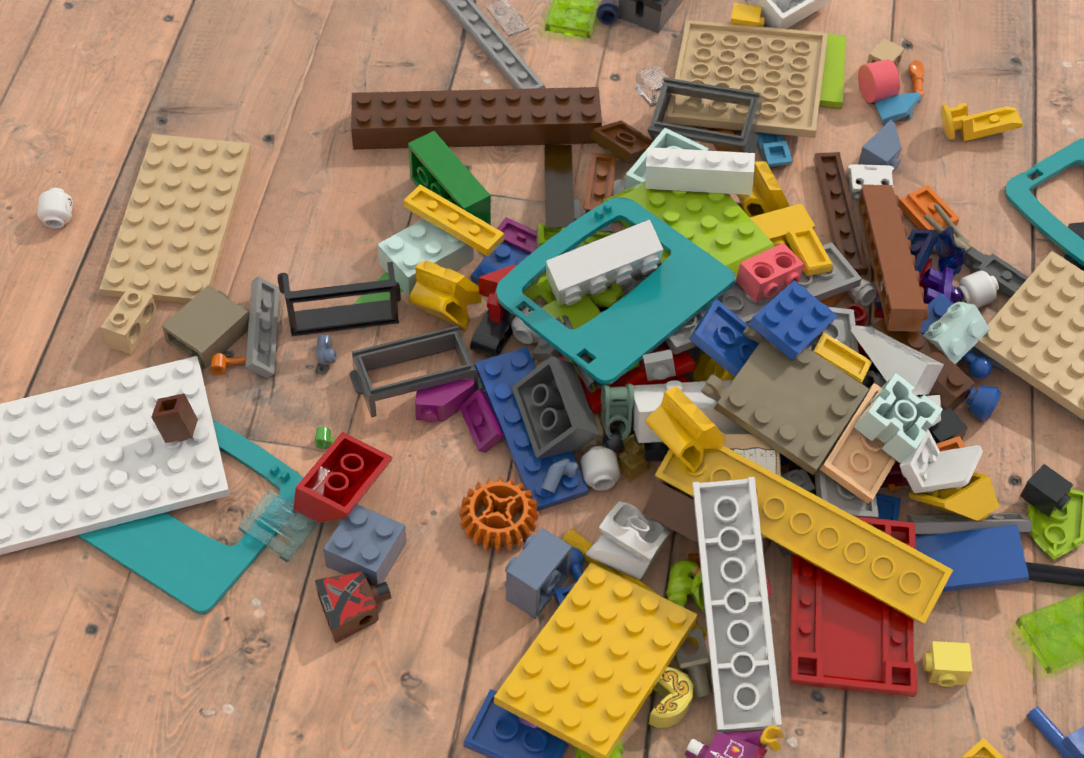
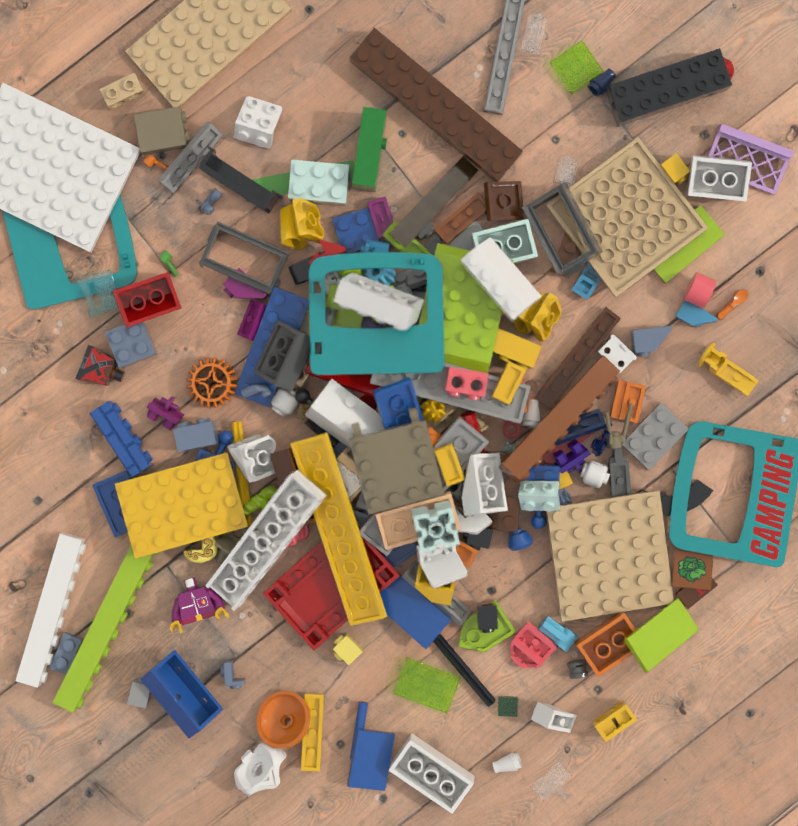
camera: 45 degrees right, 35 degrees up
(174, 418) = (88, 191): reddish brown brick -> none
(309, 252) = (257, 122): none -> white bracket
(450, 656) = (121, 438): none -> blue brick
(454, 220) = (341, 185): yellow plate -> none
(462, 589) = (166, 409): none -> magenta hips
(617, 405) = (313, 386): sand green piece -> none
(659, 365) = (351, 385): light grey plate -> none
(684, 428) = (315, 442): yellow piece -> none
(793, 320) = (437, 428): blue plate -> none
(886, 50) = (727, 274): tan brick -> none
(987, 221) = (654, 436): none -> light grey plate

